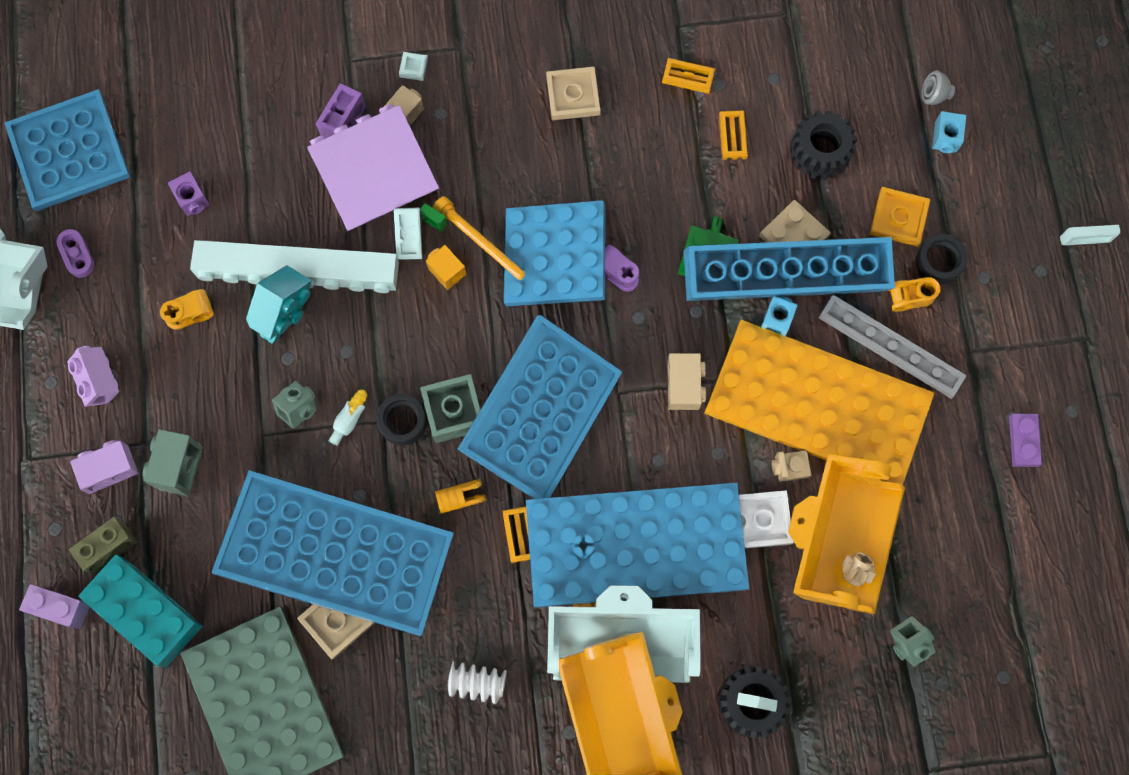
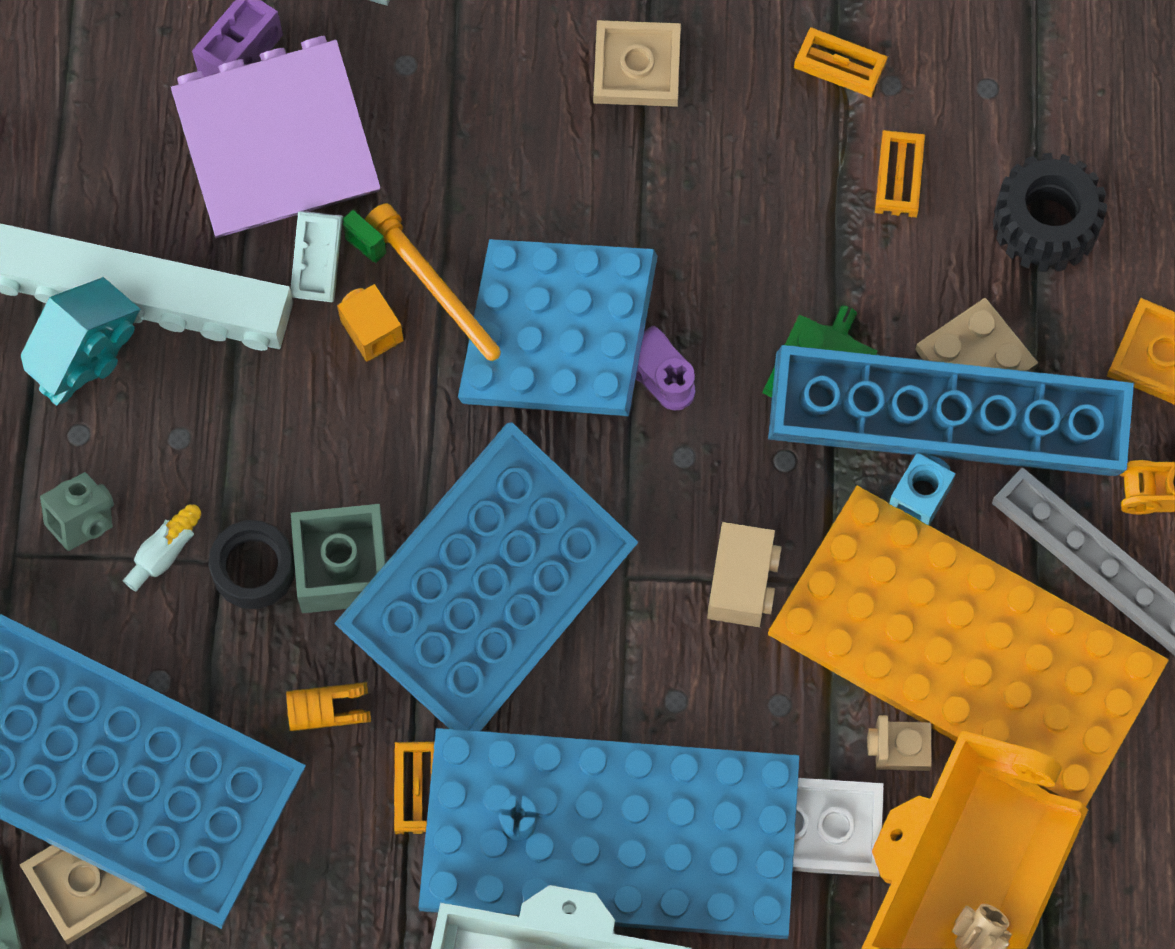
camera: 10 degrees right, 5 degrees down
(409, 101) = (356, 40): tan brick -> none

